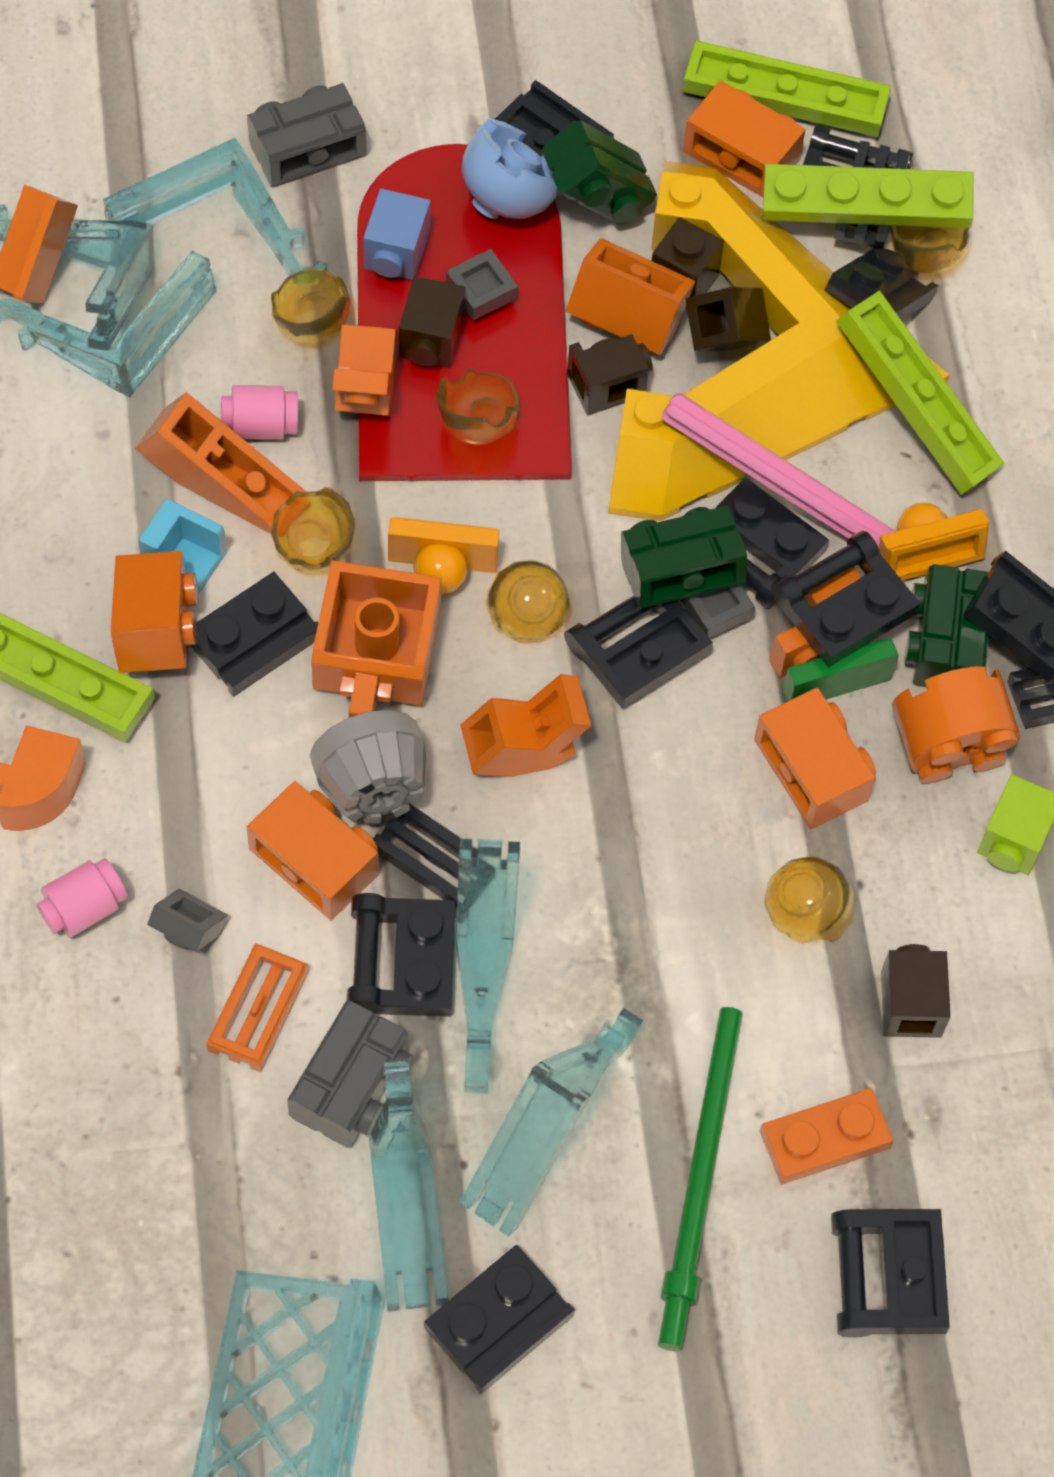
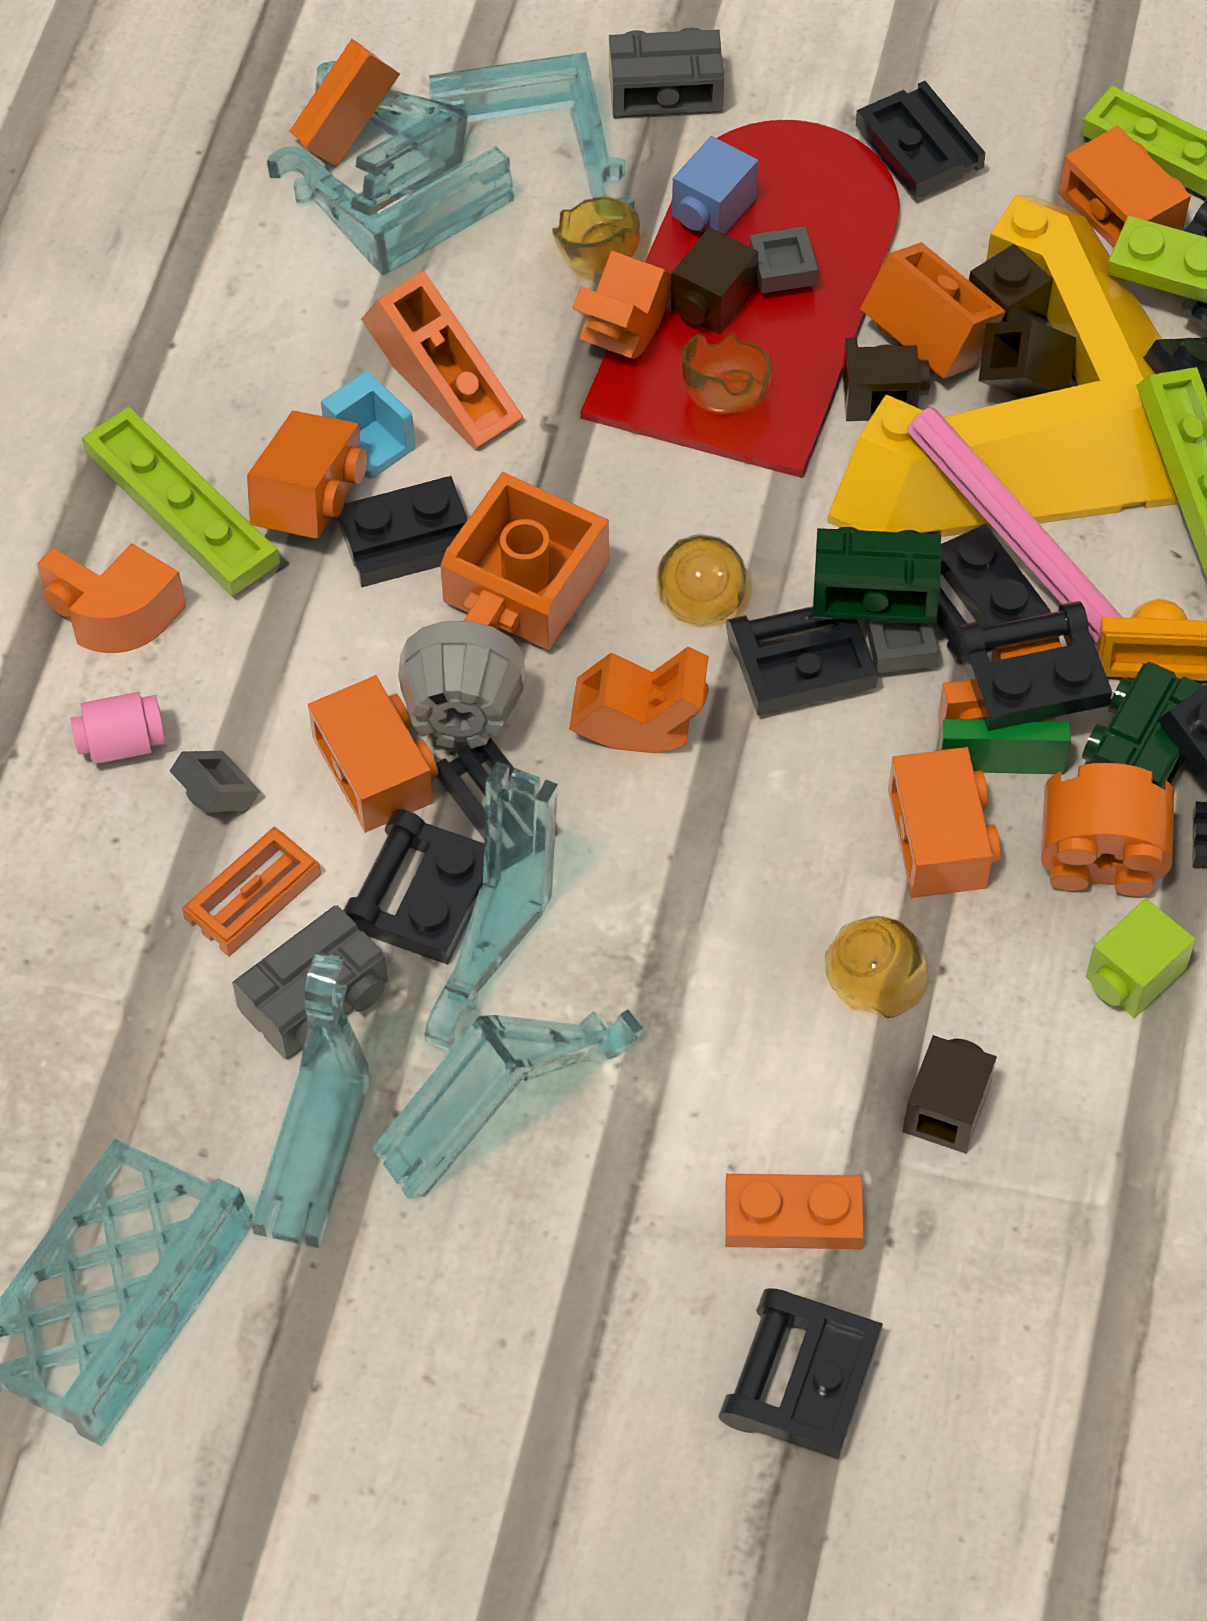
camera: 25 degrees right, 5 degrees down
(260, 411) = (503, 321): bright pink brick -> none
(313, 530) = (506, 441): clear yellow hair -> none
(443, 549) = (633, 502): light orange tile -> none
(498, 1318) = (363, 1279): black plate -> none
(506, 174) = (852, 158): light blue cylinder -> none
(599, 172) = (947, 180): dark green brick -> none
(681, 1284) = (570, 1307): green bar -> none

